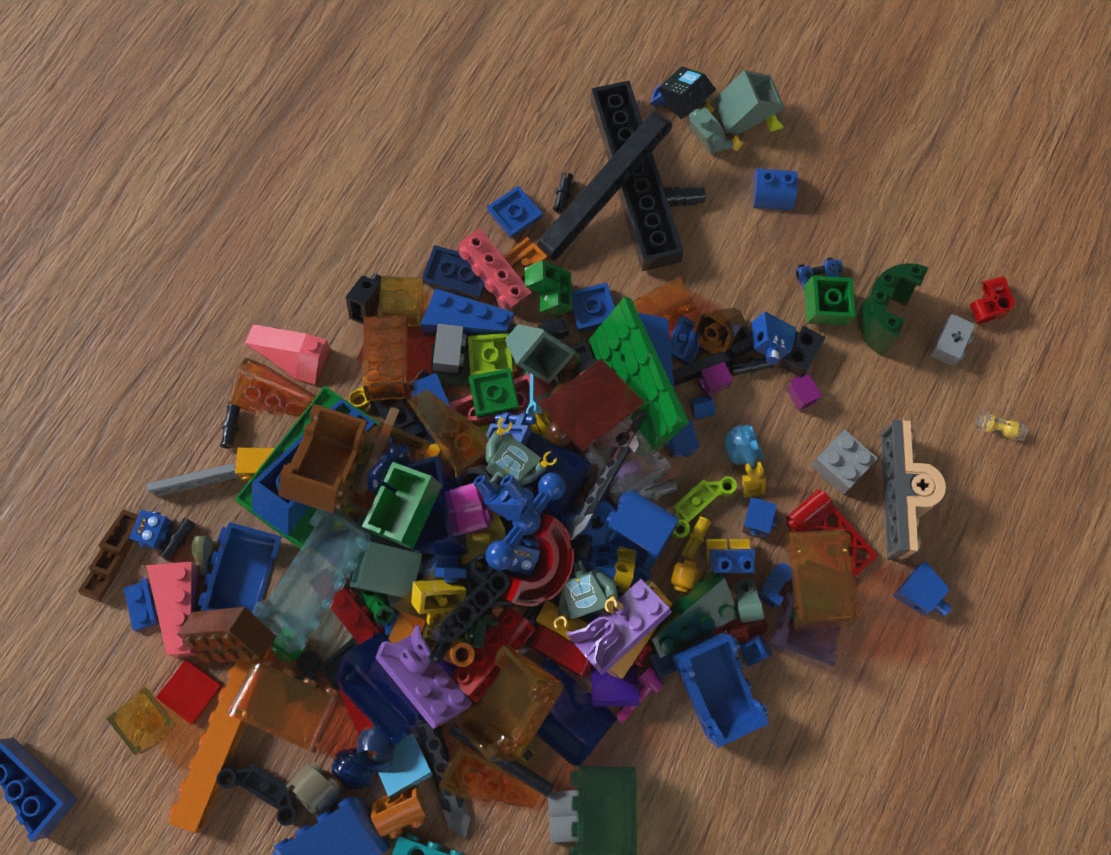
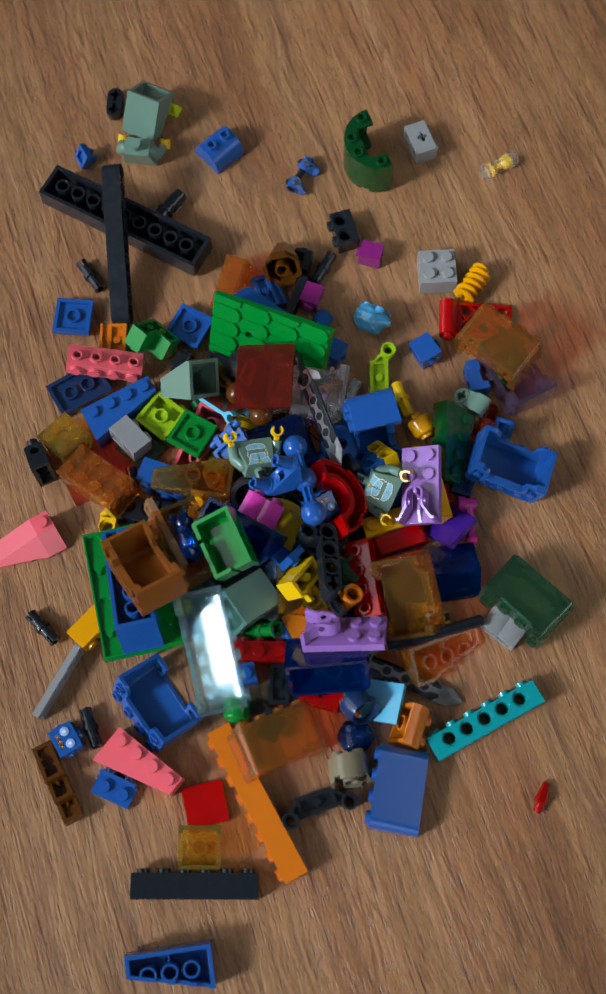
camera: 45 degrees left, 0 degrees up
(128, 771) = (194, 885): none -> black brick
(202, 552) = (115, 717): olive piece -> none
(226, 635) = (197, 738): reddish brown brick -> none
(265, 389) = (40, 581): clear orange wedge -> none
(328, 627) = (251, 677): none -> blue brick
(686, 90) = (100, 138): black slope -> none
(729, 72) = (118, 104): none -> black beam
(736, 559) = (434, 386): blue hips -> none
(754, 482) = (400, 334): yellow plate -> none
(772, 337) = (319, 238): blue torso -> none
(829, 300) = (327, 185): green brick -> none
(864, 502) = (472, 283): none -> light orange piece
(908, 489) = (489, 246): piece -> none
(924, 591) = (556, 299): blue torso -> none
(988, 308) = (415, 91): red piece -> none

